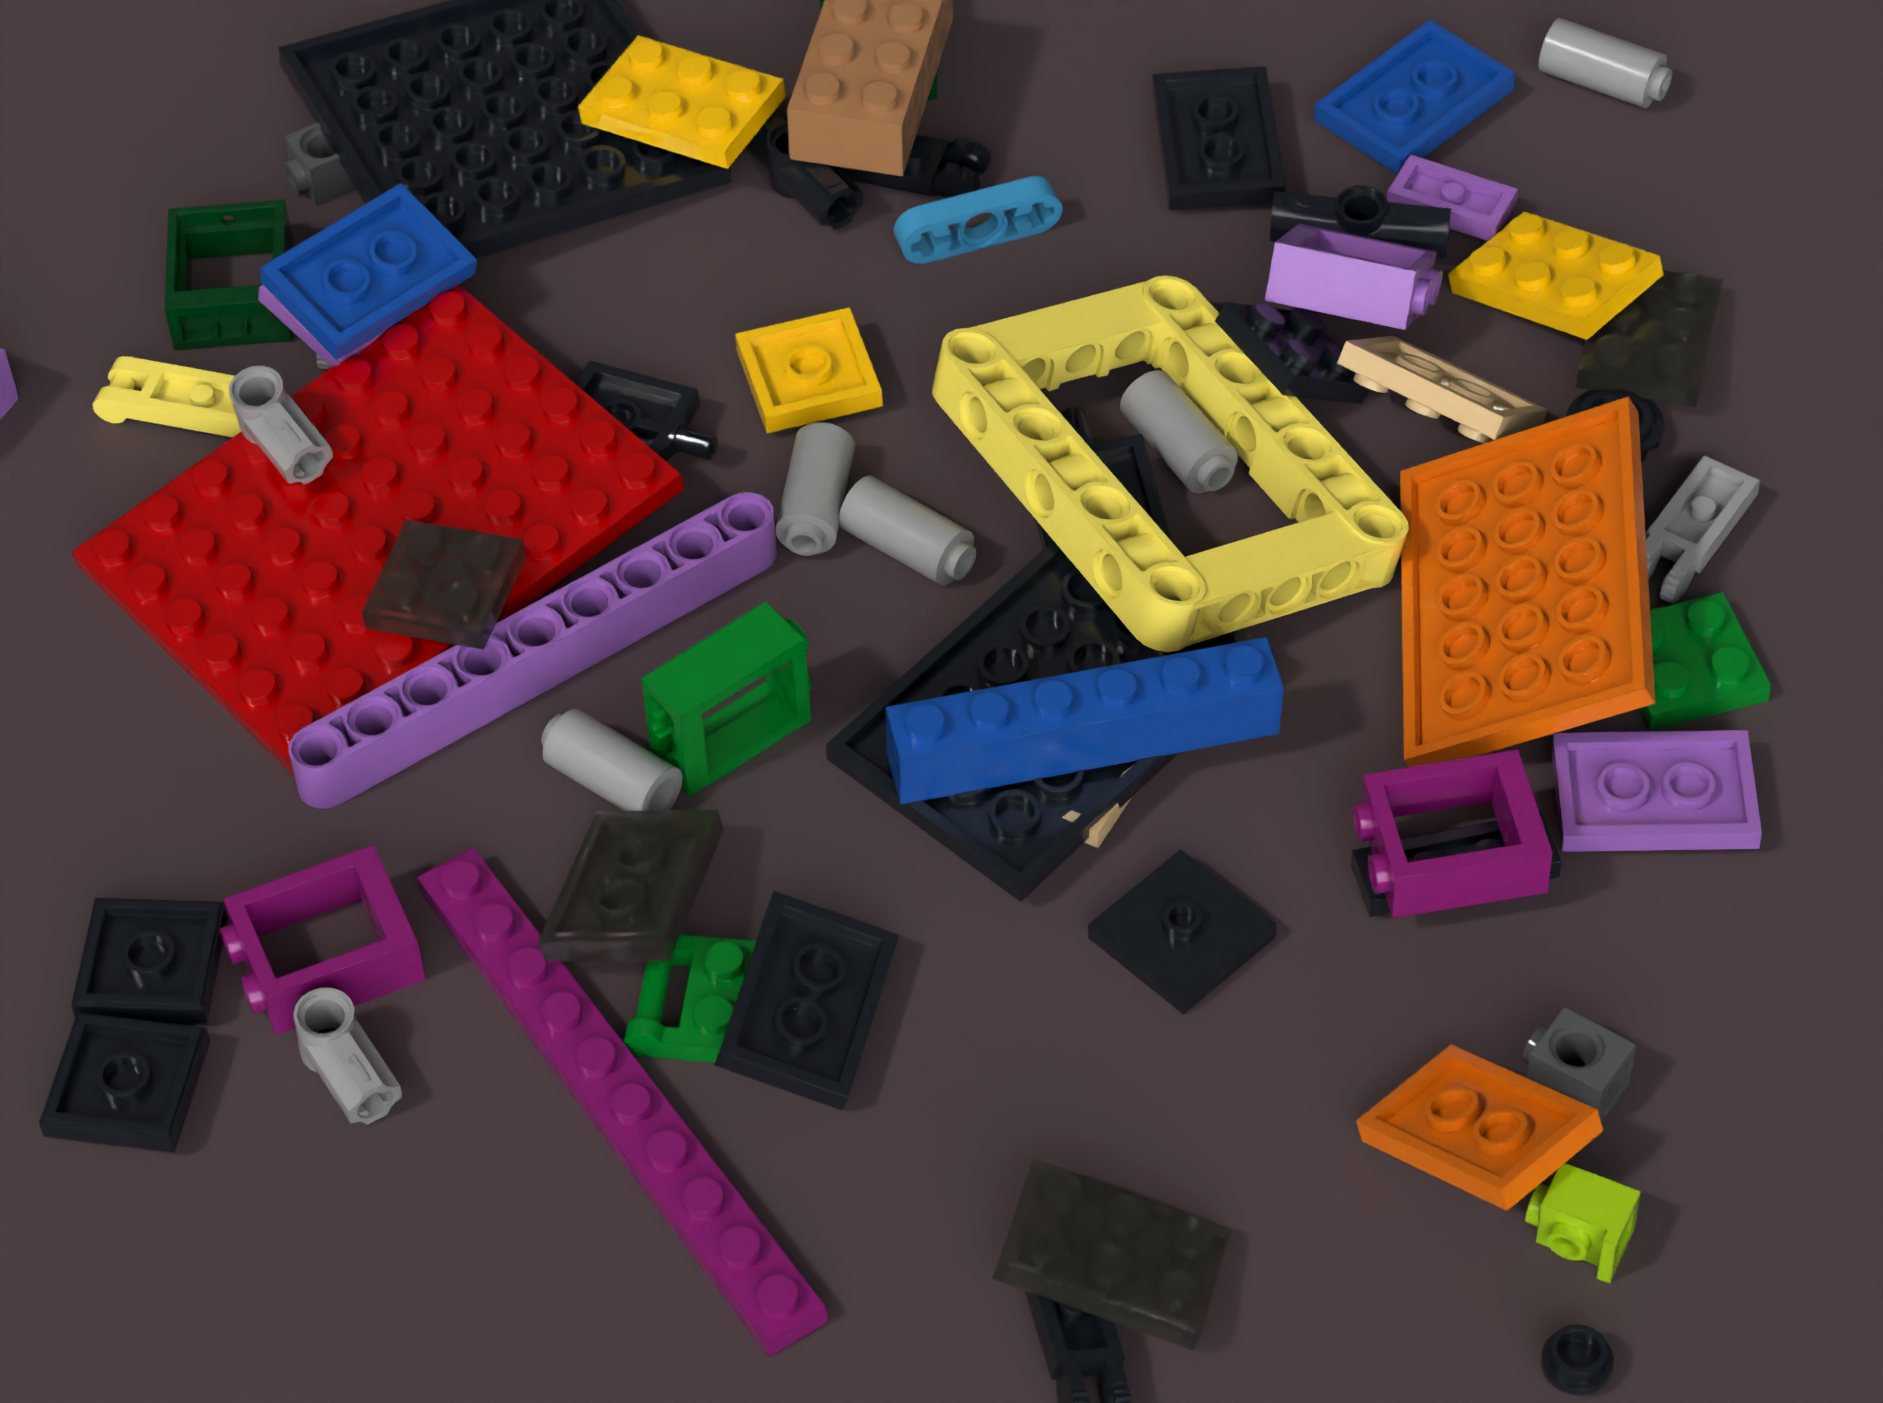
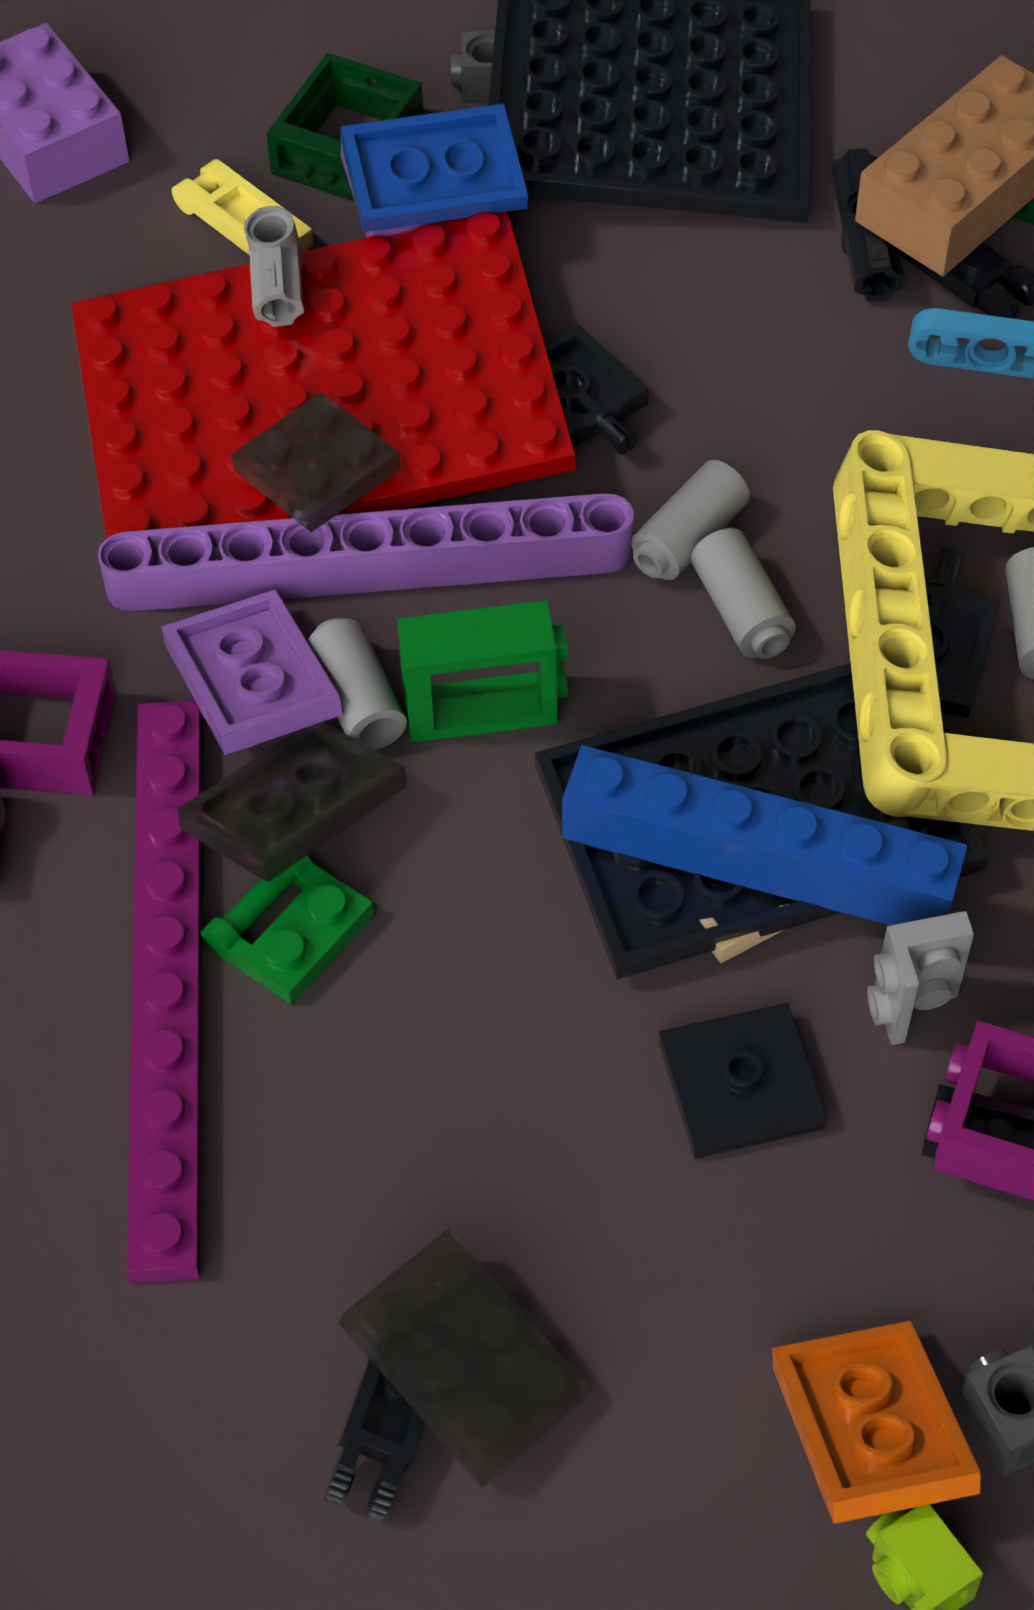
camera: 30 degrees right, 5 degrees up
(509, 797) = (251, 671): none -> medium lavender plate
(682, 101) = (796, 133): yellow plate -> none
(807, 1000) = (367, 976): black plate -> none
(808, 370) = (757, 413): yellow plate -> none
(1279, 766) = (918, 969): none -> light grey bracket

